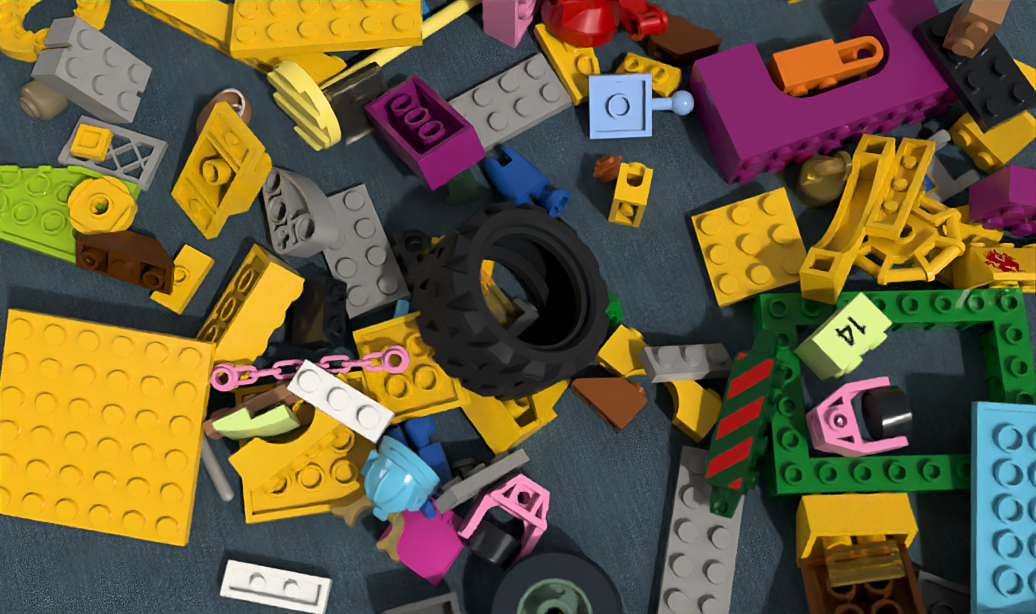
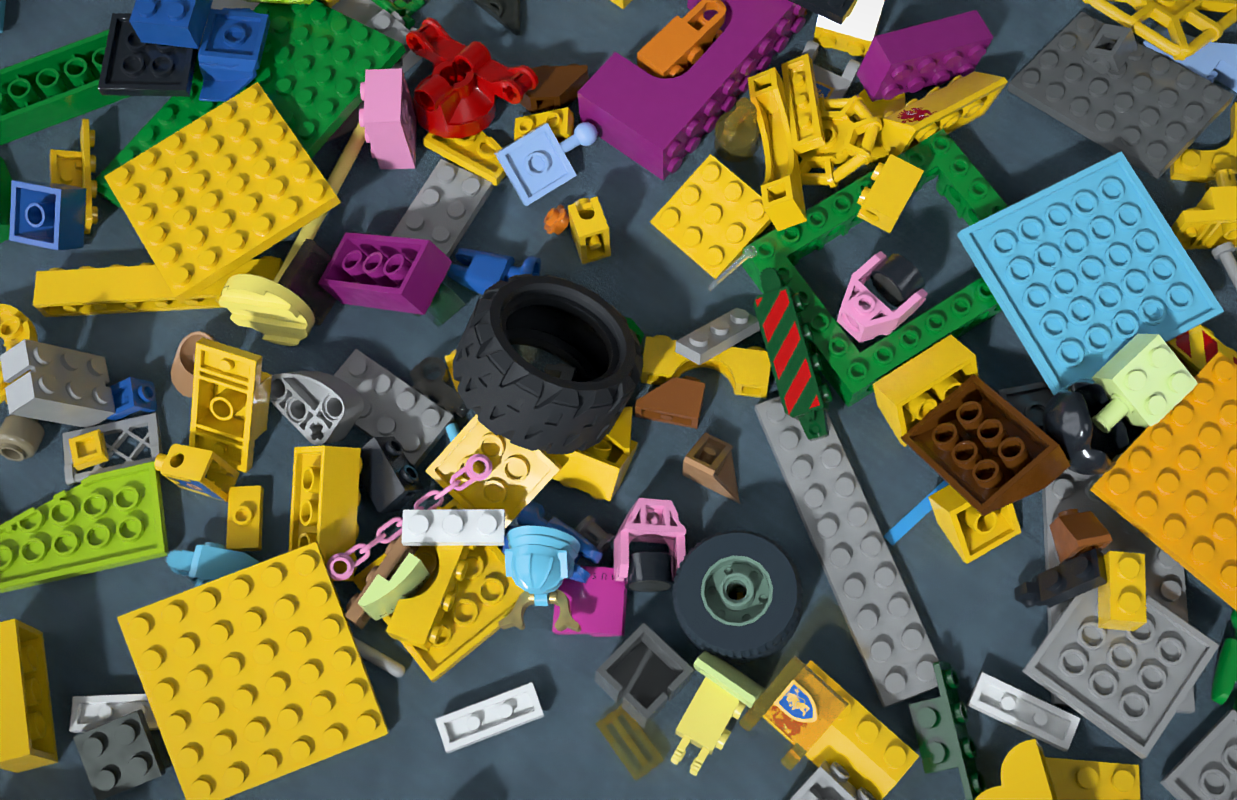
camera: 25 degrees left, 5 degrees down
(92, 192) = (149, 509): yellow plate -> none
(127, 258) = (189, 524): reddish brown slope -> none
(127, 306) = (208, 562): none -> medium azure hinge
(155, 117) = (131, 396): none -> blue bracket
(158, 209) = (188, 467): none -> yellow torso
(480, 479) = (608, 523): light grey plate -> none
(611, 478) = (712, 466): none -> medium nougat slope
(764, 302) = (750, 252): none -> clear piece
(844, 338) = (830, 241): yellowish green brick -> none
(864, 568) = (954, 409): clear yellow tile -> none
(932, 323) = (889, 193): none -> yellow brick

